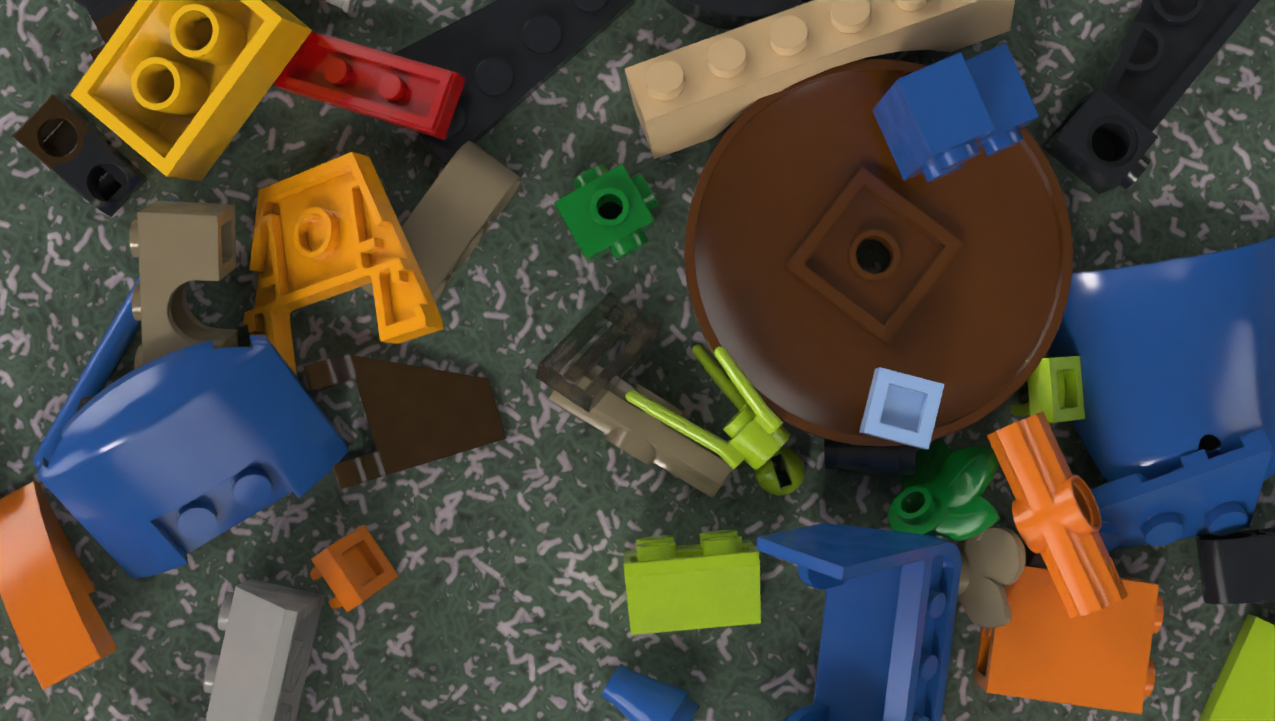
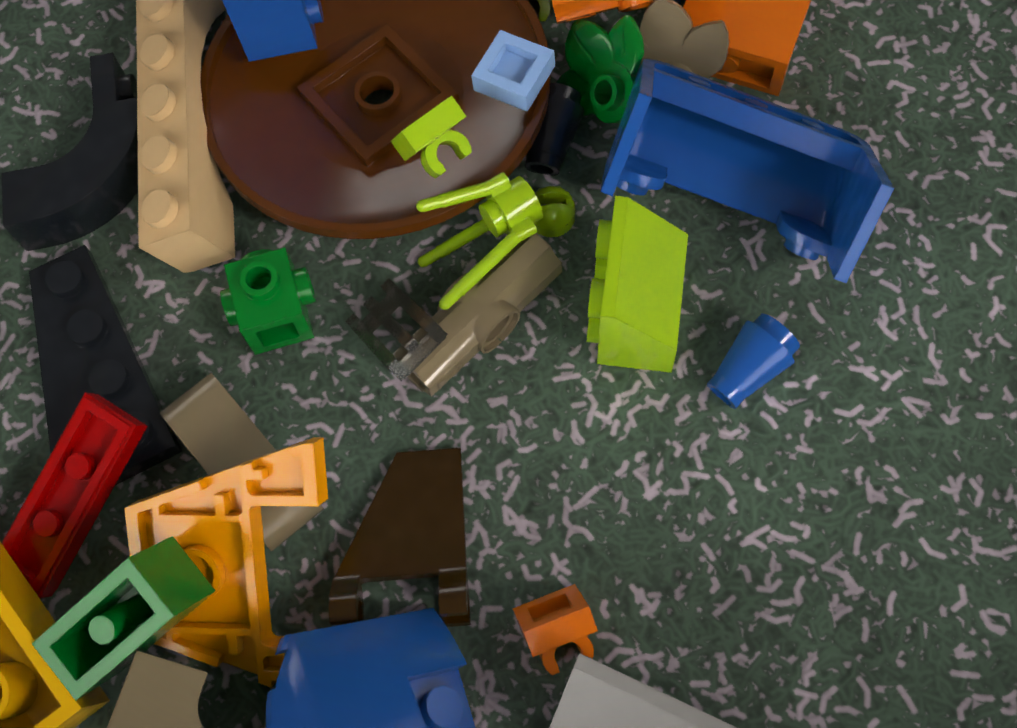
camera: 70 degrees left, 20 degrees down
(251, 189) = (123, 615): none -> green brick
(806, 339) = (432, 131): none -> lime tile

